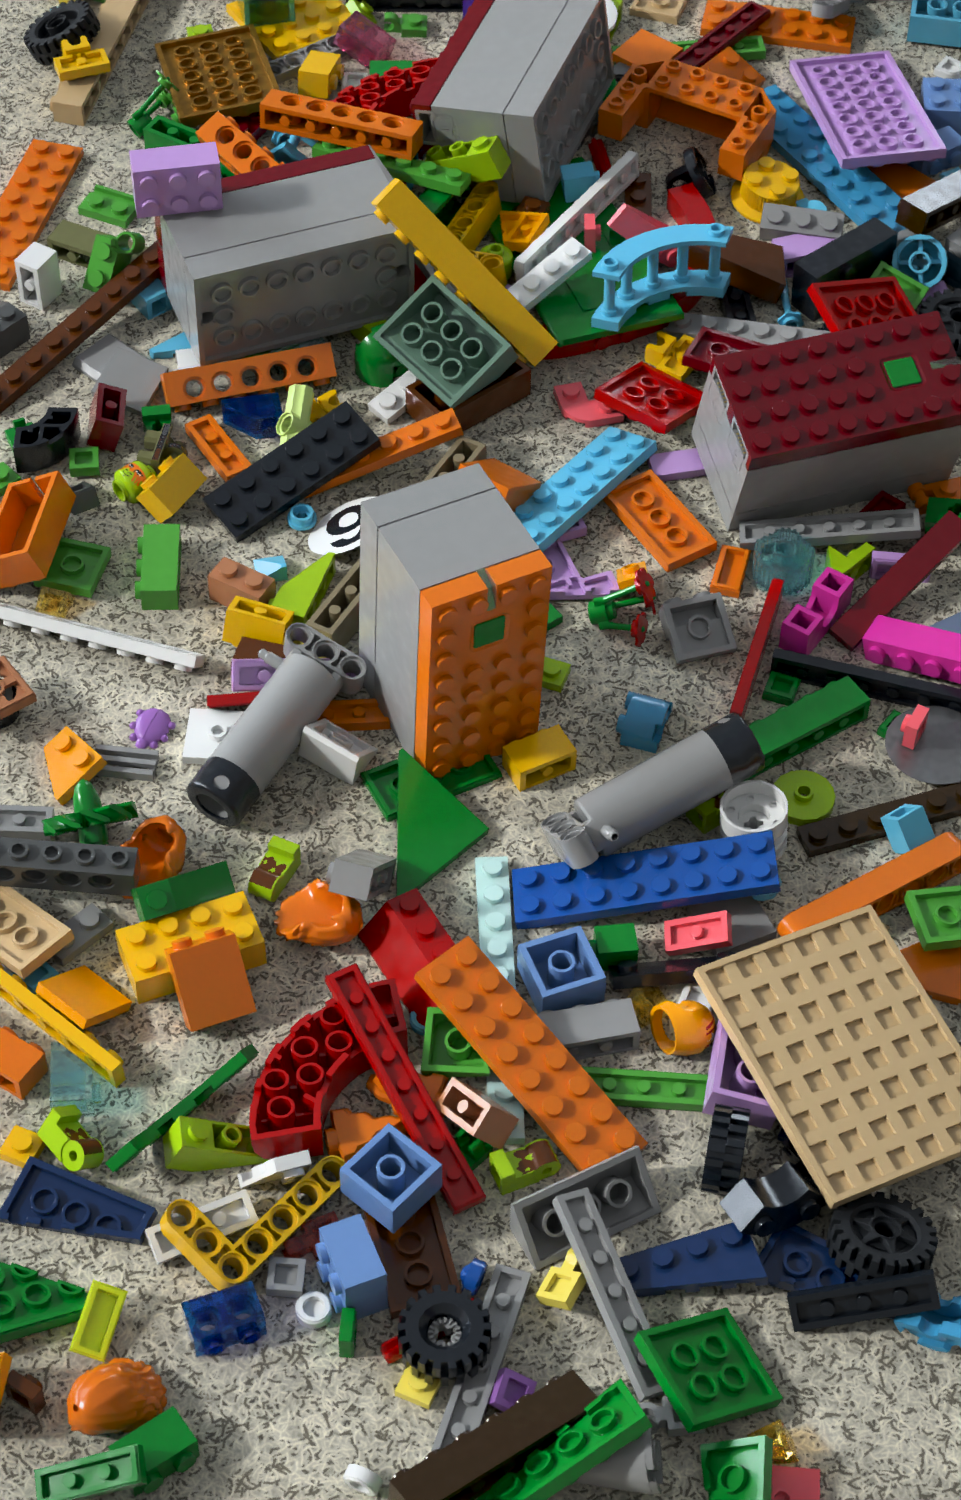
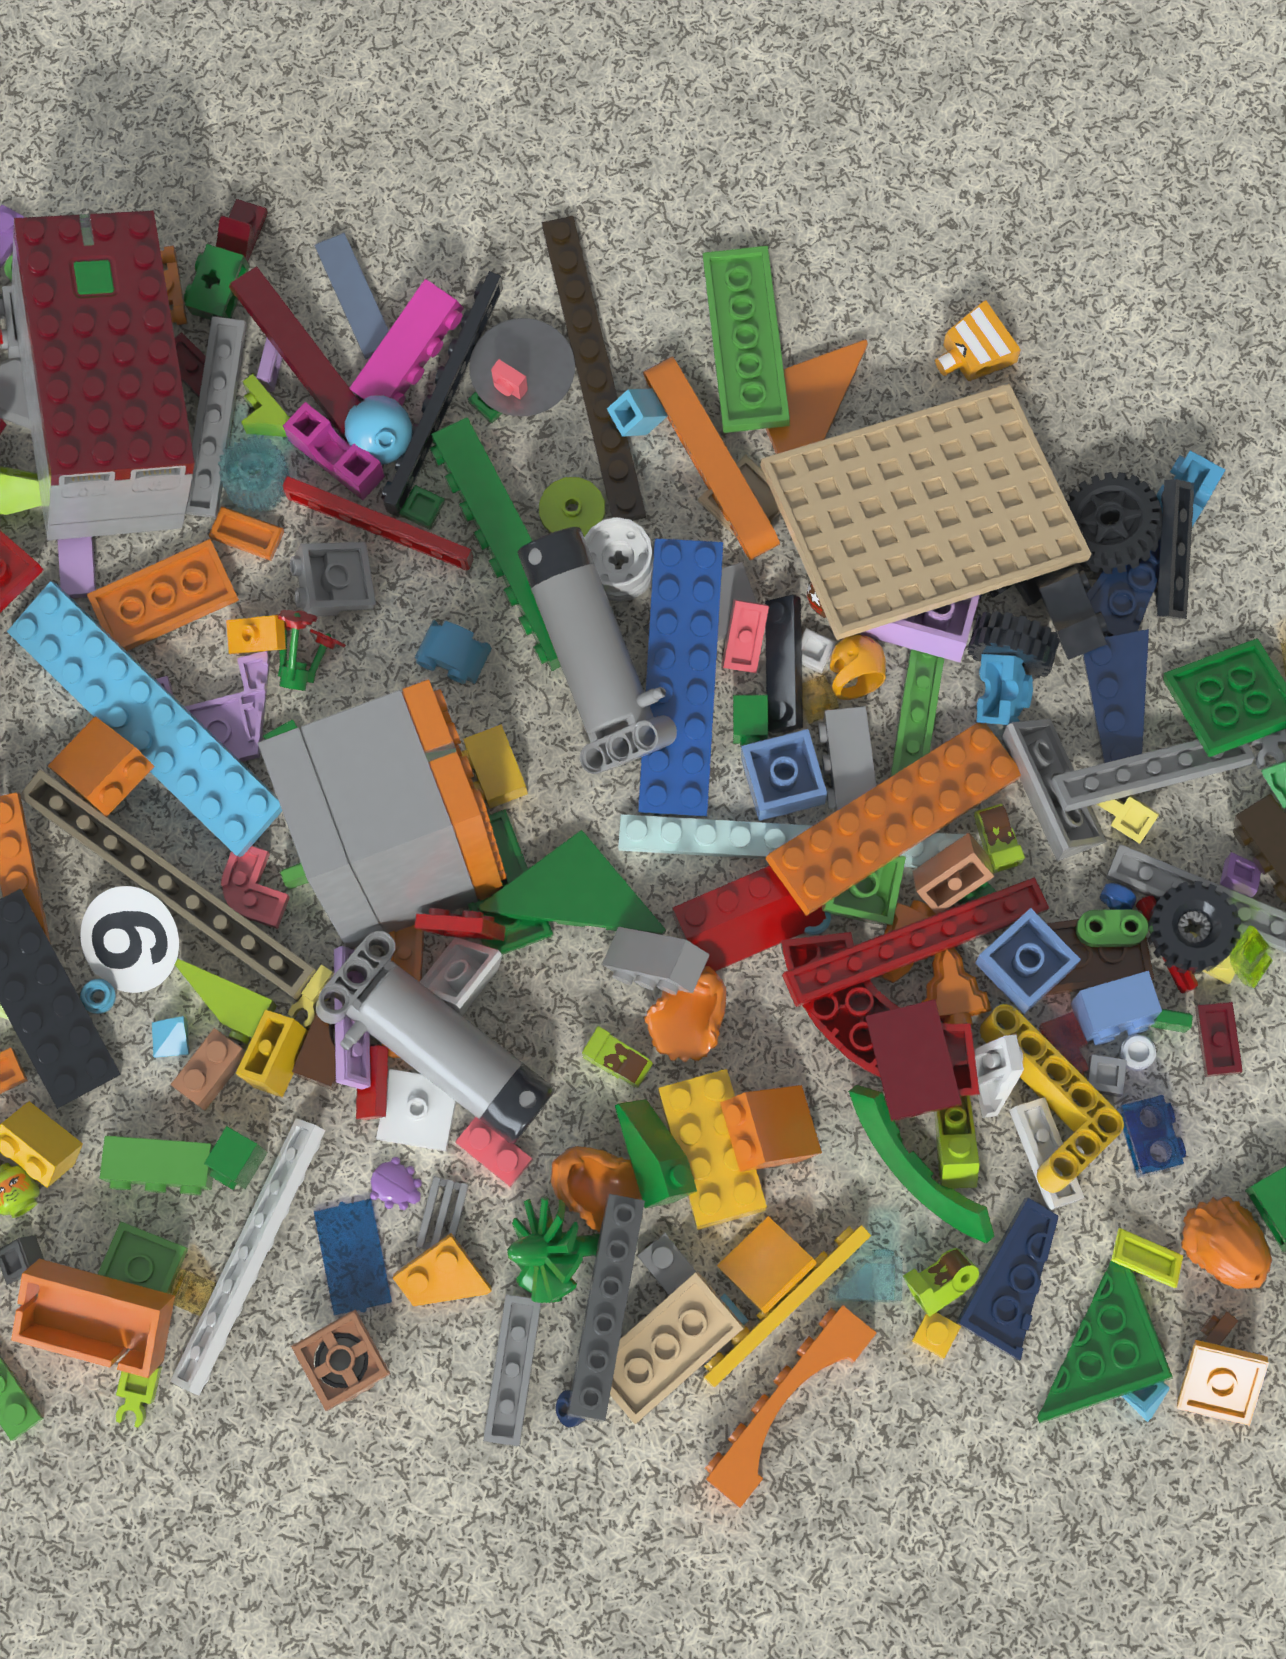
camera: 80 degrees left, 25 degrees up
(87, 706) = (352, 1257): none -> clear blue piece
(164, 606) = (234, 1159): none -> green brick
(174, 799) = (494, 1152): none -> coral plate
(280, 1081) = (913, 1060): none -> dark red tile
(332, 1381) = (1218, 1039): none -> dark red plate
(382, 735) = (468, 925): none -> red plate
(420, 1393) = (1250, 957): none -> clear neon green slope
(437, 1261) = (1112, 928): none -> bright green plate
(673, 1156) = (1006, 689): none -> dark azure cylinder
(843, 637) = (379, 427): none -> medium azure cylinder

